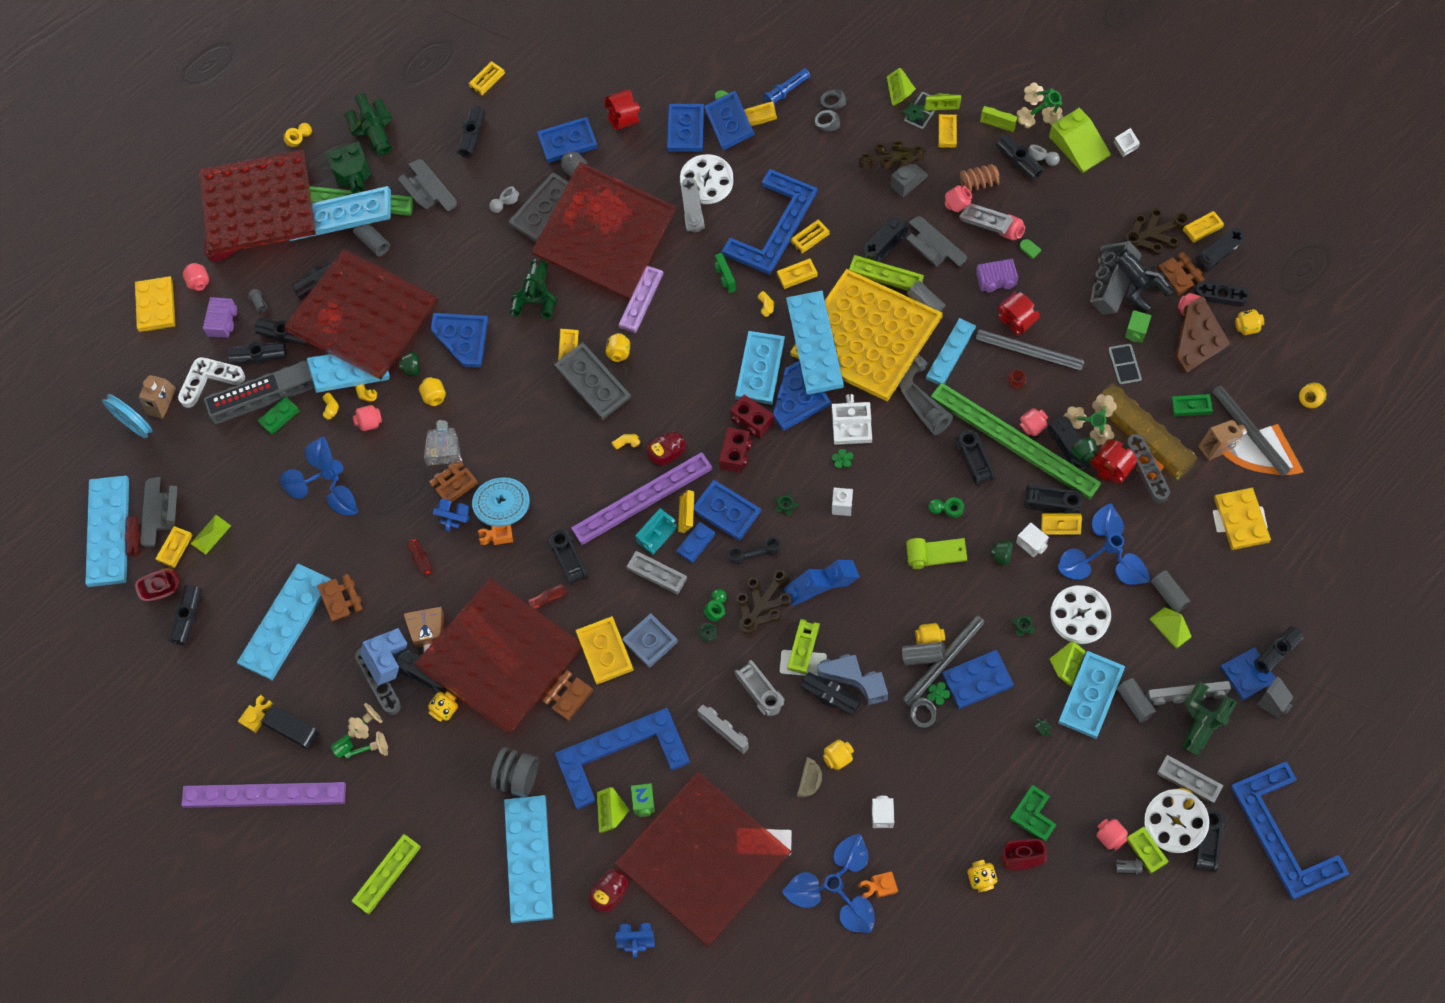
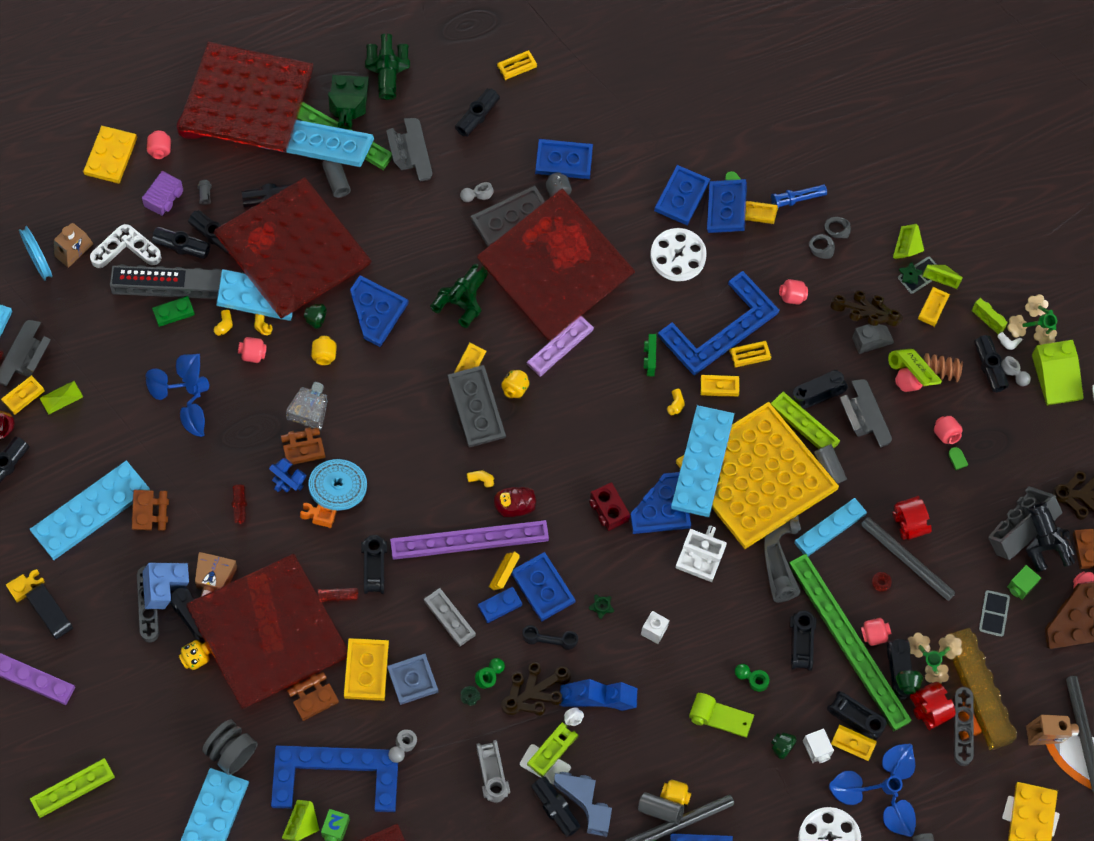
camera: 15 degrees right, 0 degrees up
(304, 130) = (323, 44): yellow plate -> none
(359, 729) = (107, 643): tan plant -> none
(622, 109) = (628, 152): red brick -> none
(656, 531) = (467, 577): teal hinge -> none
(668, 710) = (397, 754): none -> light grey plate
(692, 206) = (650, 277): light grey piece -> none
(724, 728) = (441, 793): light grey plate -> none
(732, 449) = (574, 530): dark red brick -> none
(760, 367) = (640, 462): medium azure plate -> none
(808, 609) = (573, 716): none -> white plate
(822, 168) = (793, 291): none -> coral head
(842, 459) = (676, 585): green plant -> none
(951, 181) = (918, 367): none -> lime door
(986, 218) = (927, 411): light grey plate -> none
(996, 275) = (911, 471): medium lavender brick -> none
(1024, 135) = (1007, 343): none -> white animal
(1027, 621) = (774, 820): dark green plate -> none
(1191, 405) = (1038, 683): green plate -> none

